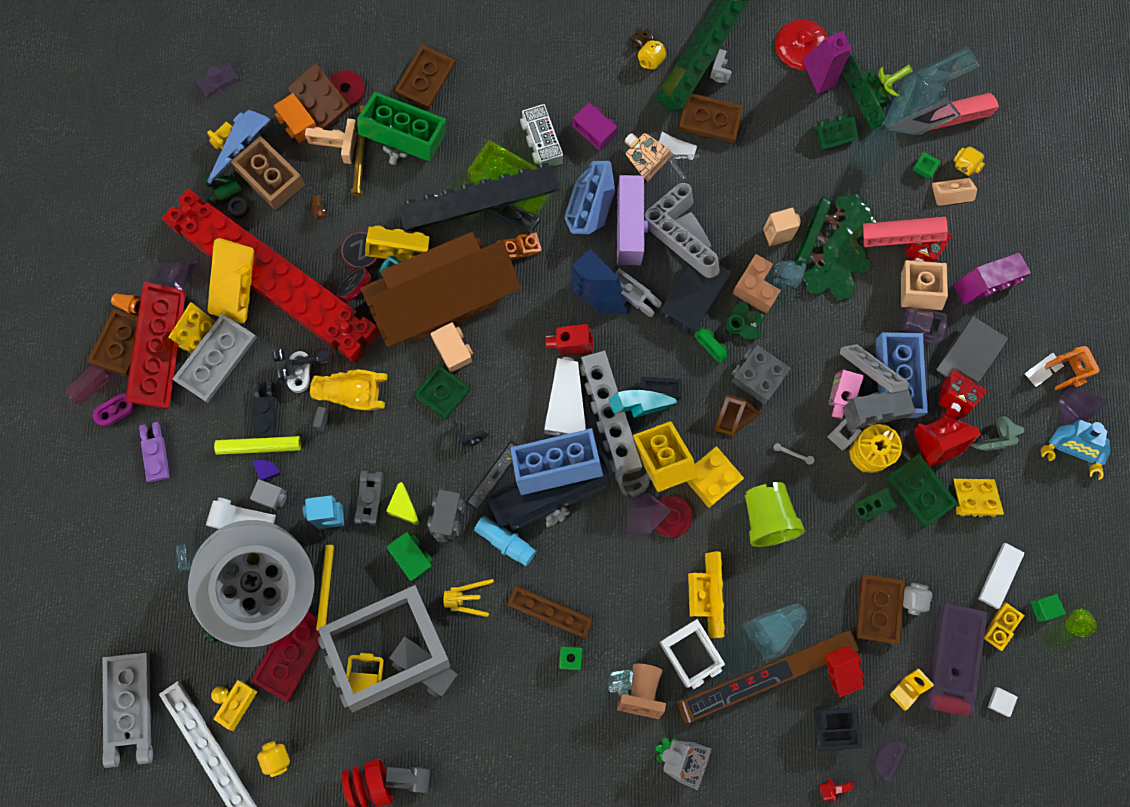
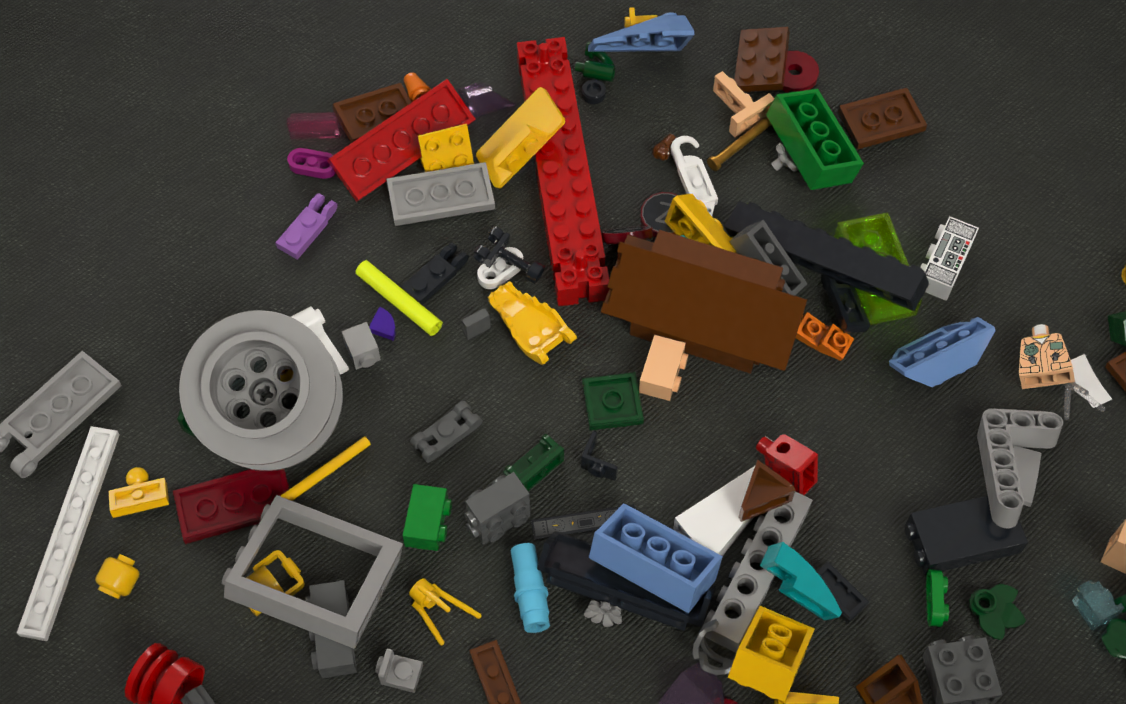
camera: 50 degrees right, 15 degrees down
(268, 173) = (648, 82): medium nougat brick -> none
(294, 116) = (722, 55): orange brick -> none
(323, 512) = (388, 398): medium azure arch -> none
(352, 210) = (693, 174): none -> white plate
(401, 506) = (468, 464): neon yellow slope -> none
(436, 469) = (537, 462): none -> dark green hinge
(443, 227) = (761, 244): none -> dark grey brick
(482, 652) = (398, 671): none -> light grey bracket
(578, 372) = (765, 492): none -> reddish brown slope
(594, 126) = (1014, 291): magenta brick -> none
(597, 285) = (866, 429): dark blue wedge -> none
(630, 220) = (963, 402): lavender brick -> none
(637, 293) = (900, 474): light grey hinge -> none
(753, 288) = (1041, 581): nougat brick -> none

